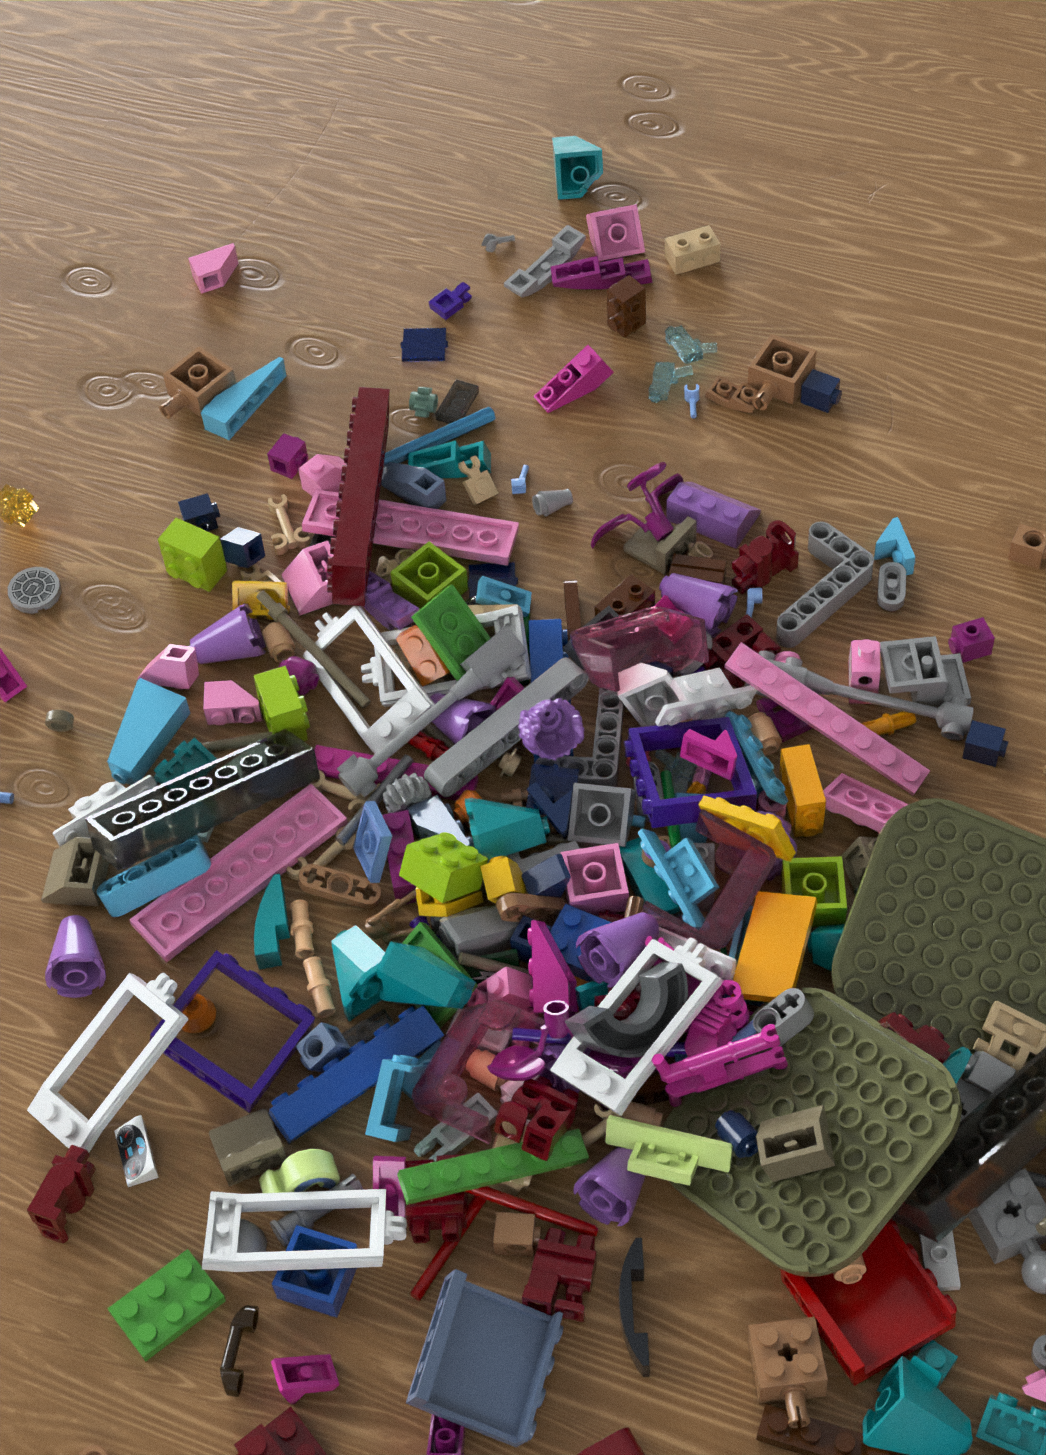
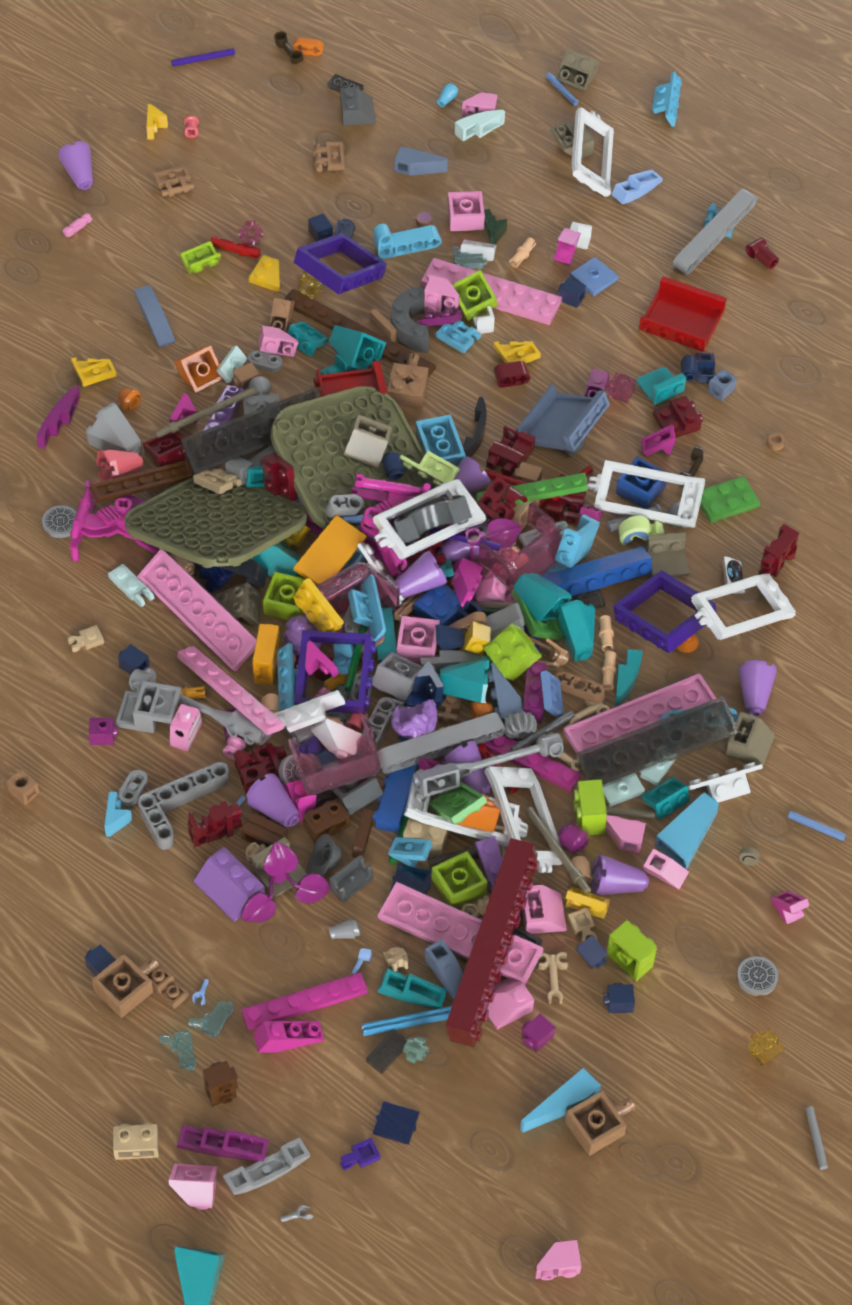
camera: 170 degrees left, 0 degrees up
(333, 1046) = (611, 591): sand blue brick -> none
(568, 557) = (351, 879): none -> dark grey hinge
(570, 424) = (305, 1001): none -> dark pink plate
(609, 565) = (324, 856): none -> dark grey piece
(683, 1243) = (440, 438): none -> medium azure brick

